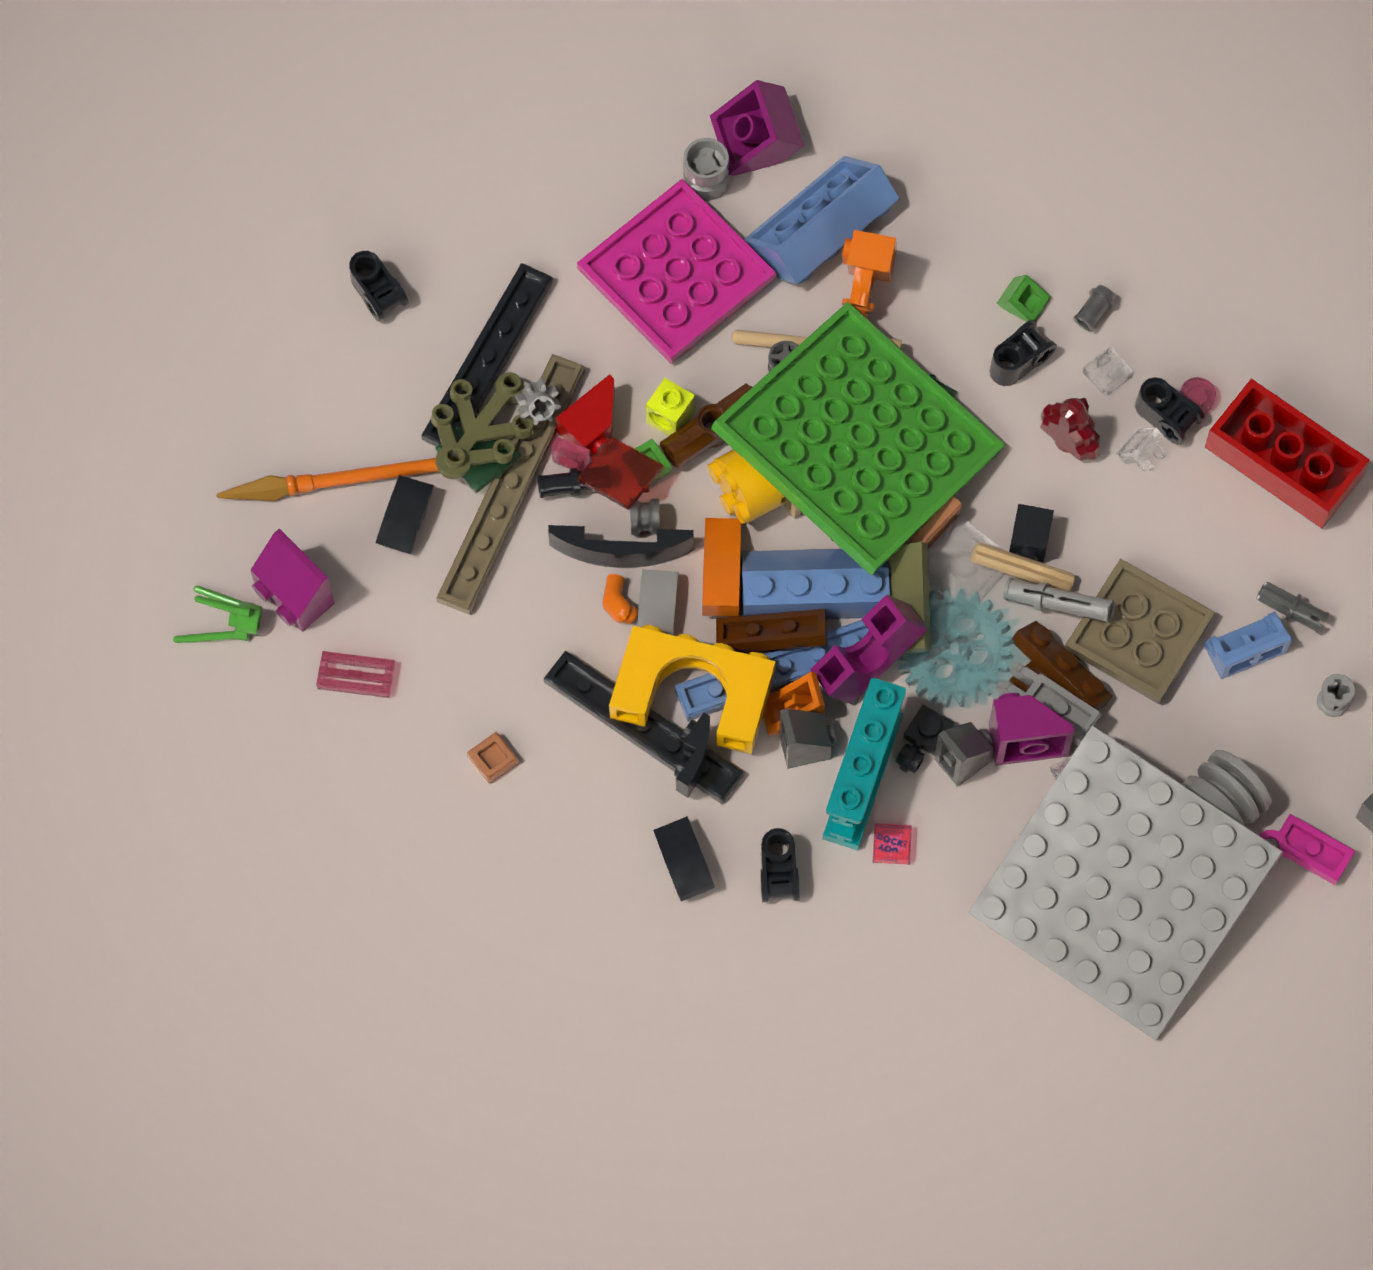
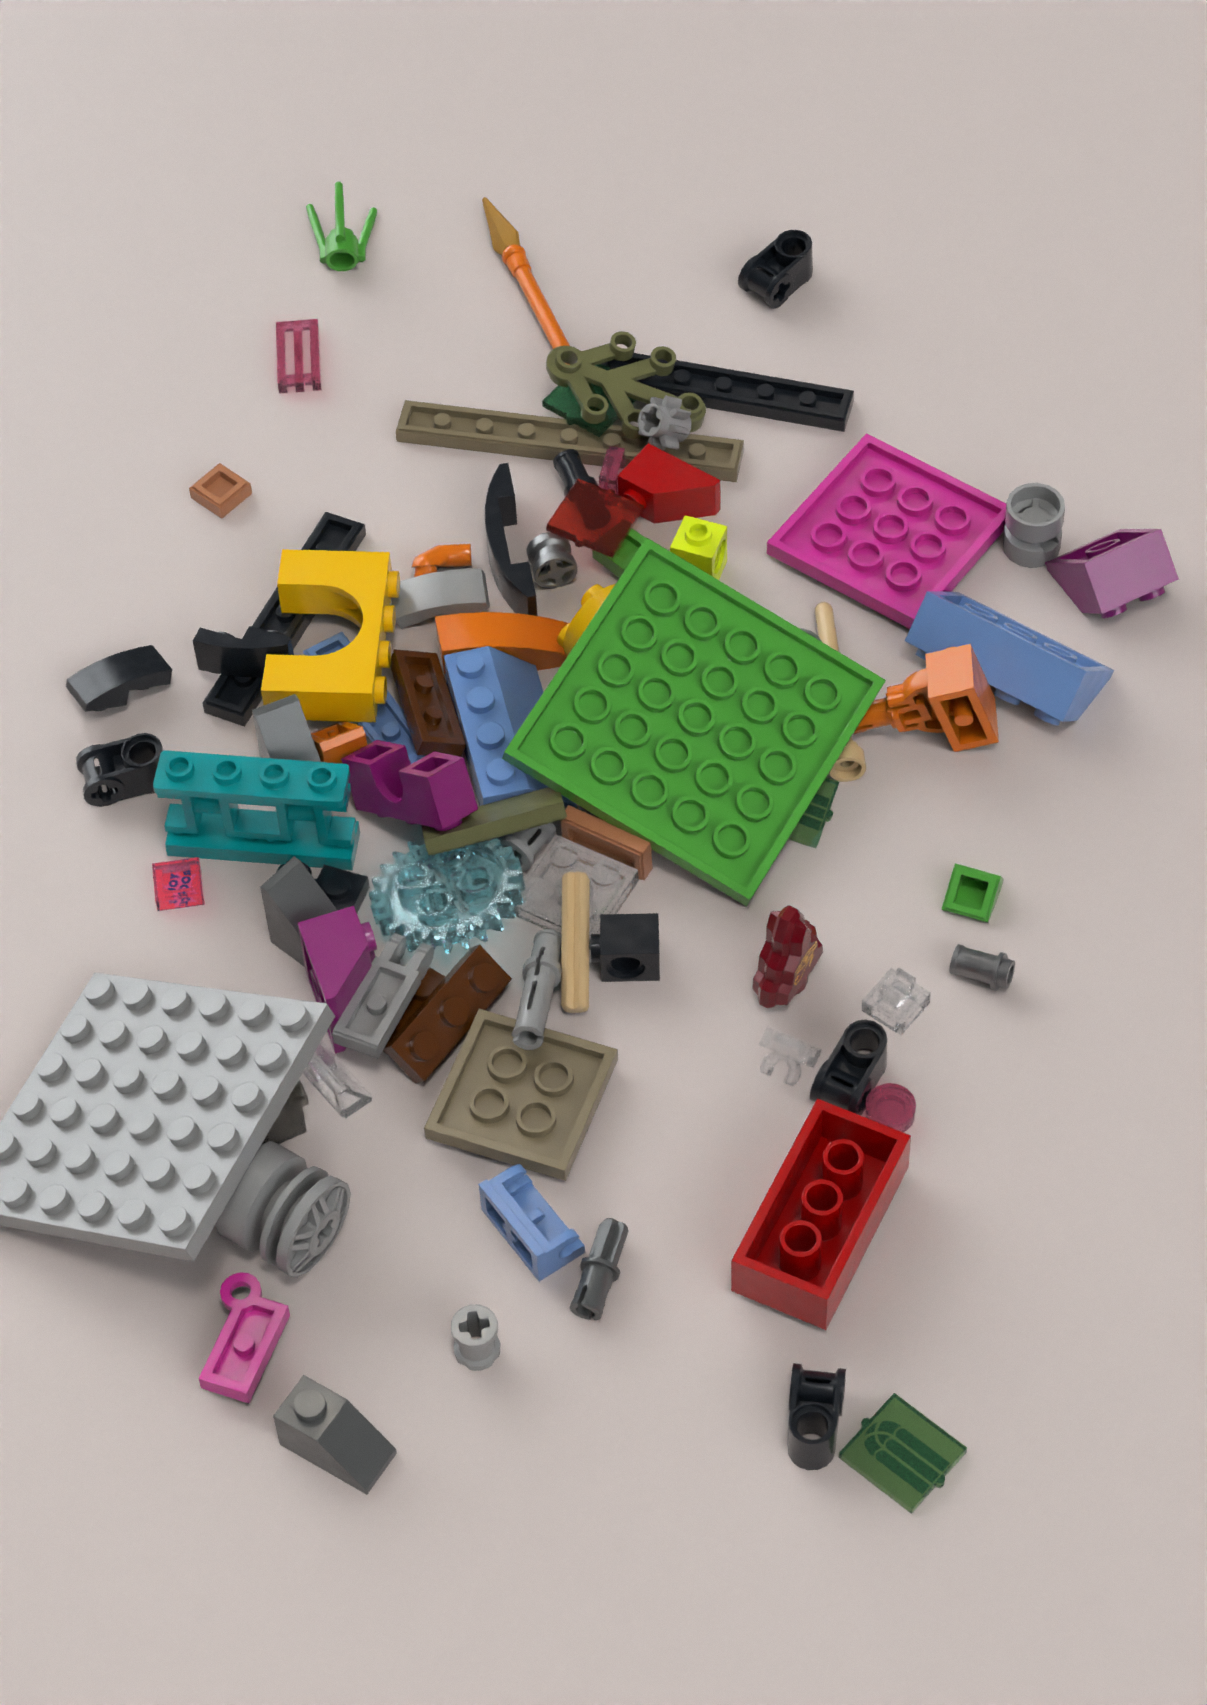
camera: 80 degrees right, 15 degrees down
(291, 582) = (389, 271): magenta slope -> none
(404, 514) = (508, 348): black slope -> none
(1025, 350) = (889, 895): black piece -> none

